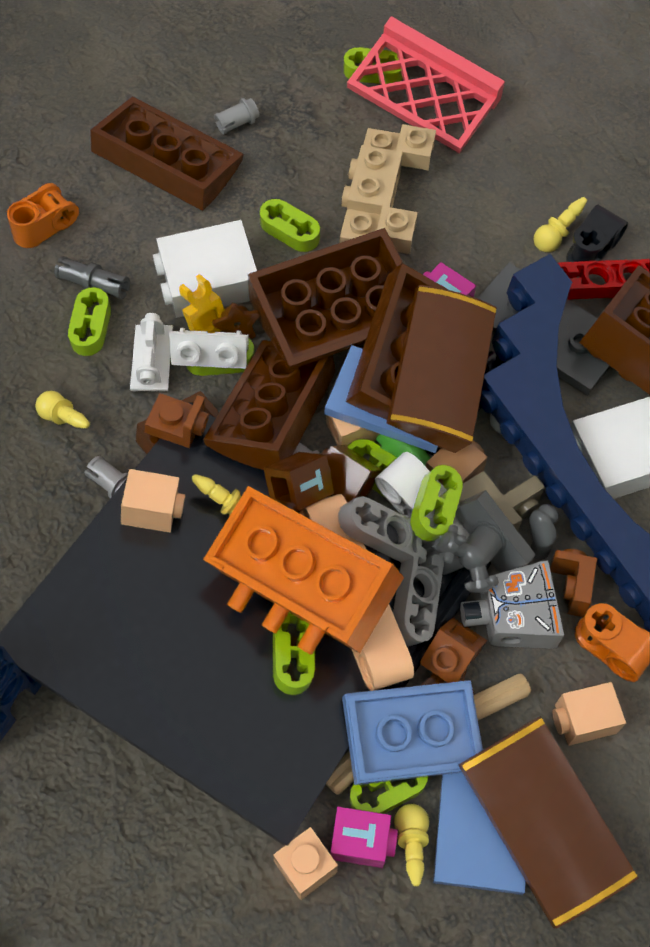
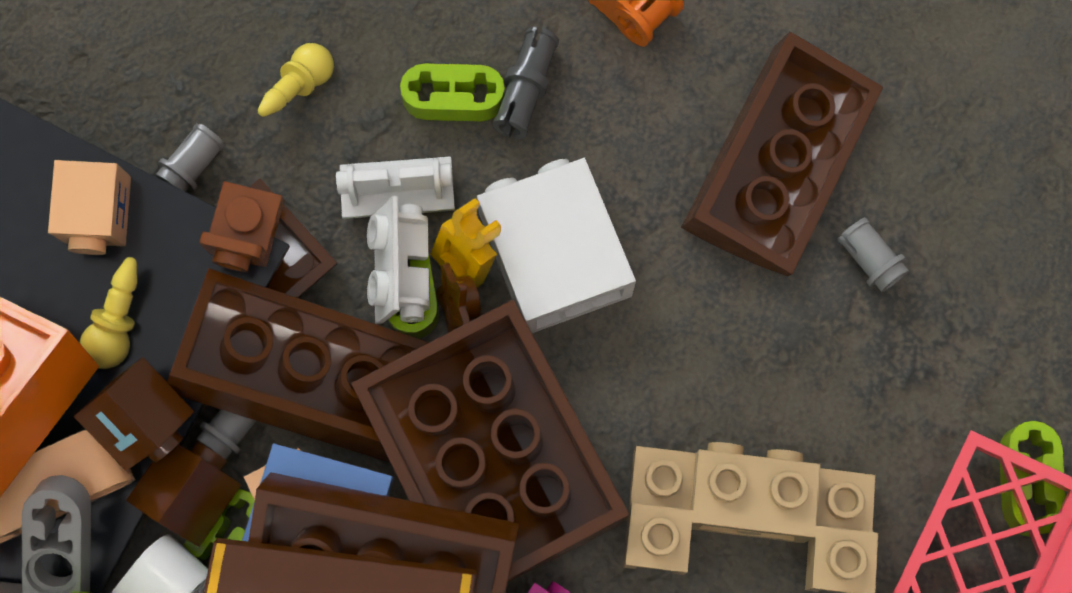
camera: 85 degrees right, 10 degrees up
(292, 222) = (651, 358): lime beam -> none

